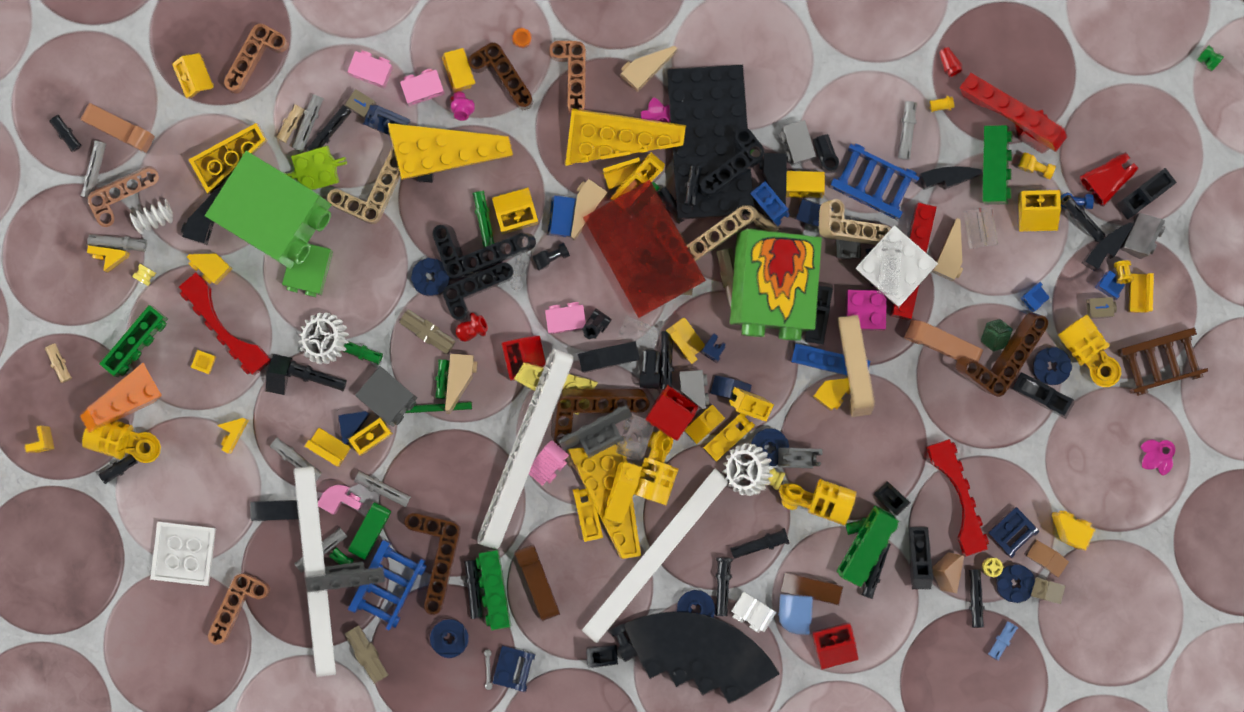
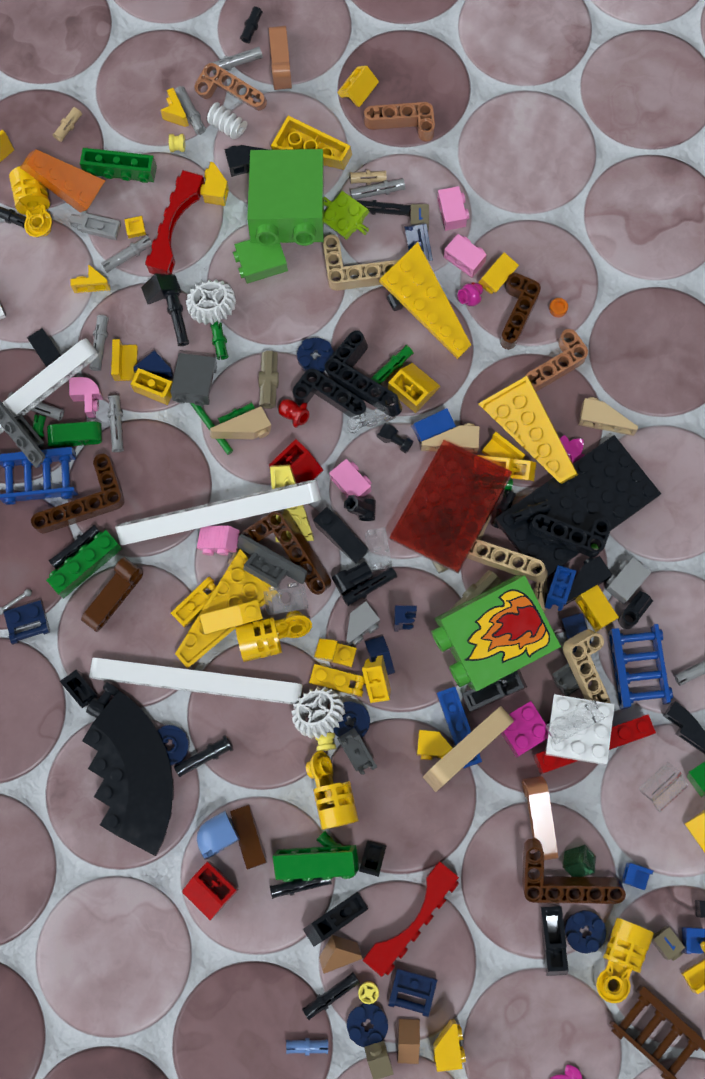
camera: 60 degrees right, 10 degrees down
(179, 396) = (96, 225): none -> light grey hinge
(225, 384) = (126, 254): none -> light grey pin
(441, 630) = (32, 555): dark blue plate -> none
(671, 413) = (326, 616): red slope -> none
(686, 339) = (397, 589): yellow panel -> none
(754, 612) = (196, 797): white brick -> none
(769, 541) = (266, 771): black pin -> none
(950, 256) = (619, 775): tan slope -> none

